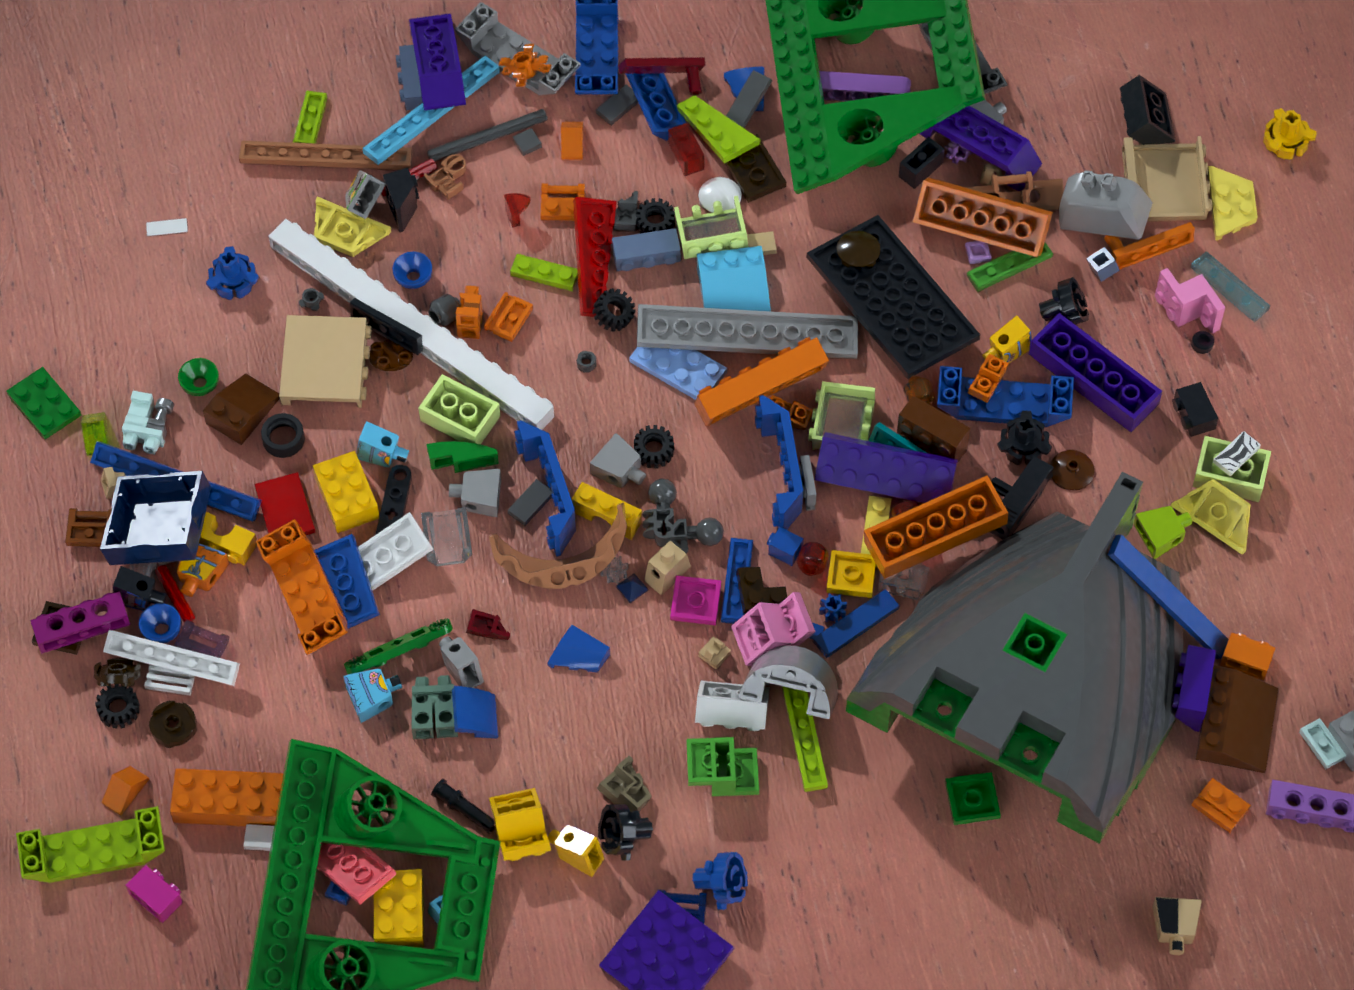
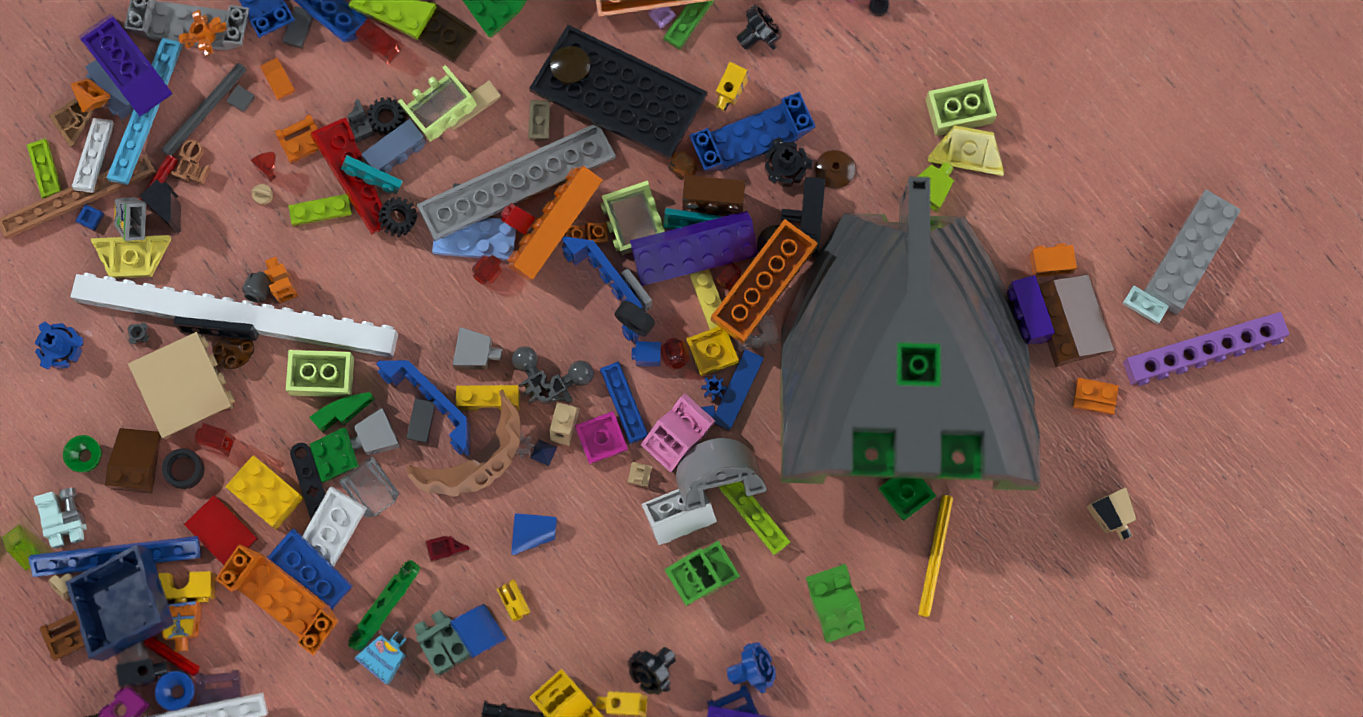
camera: 30 degrees left, 15 degrees up
(326, 180) = (90, 217): none -> blue tile
(327, 421) = (215, 439): none -> clear red brick
(361, 87) = (70, 121): none -> medium nougat slope
(361, 126) = (93, 155): none -> white tile
(379, 446) = (263, 439): medium azure torso -> none
(389, 72) = (89, 95): none -> orange slope
(409, 263) = (205, 257): blue piece -> none
(430, 490) = (334, 455): none -> green plate
(458, 656) = (442, 593): light grey torso -> none
(498, 233) = (262, 194): none -> tan tile
(508, 317) = (312, 265): orange plate -> none
(524, 704) = (513, 600): none -> yellow arm
(586, 367) = (398, 266): dark grey axle -> none
(610, 260) = (371, 175): none -> teal plate
(625, 786) = (632, 628): dark tan slope -> none
(650, 435) = (495, 308): black tyre -> none
(672, 396) = (486, 269): none -> clear red head
(721, 190) = (426, 65): white dish -> none
(727, 361) = (517, 218): none -> red brick
(734, 279) = (481, 141): medium azure slope -> none
(752, 589) = (645, 409): dark brown plate -> none
(787, 493) = (634, 318): none -> black tyre
(801, 289) = (539, 120): none -> dark tan plate
(839, 861) = (835, 603): none -> bright green bracket
(968, 872) = (935, 556): none -> yellow axle
(988, 378) = (731, 125): orange slope -> none
(1096, 372) = (815, 76): dark purple brick -> none
(1167, 595) = (980, 252): blue tile -> none
(1195, 409) = (904, 69): black brick -> none
(1236, 453) = (962, 95): white tile -> none

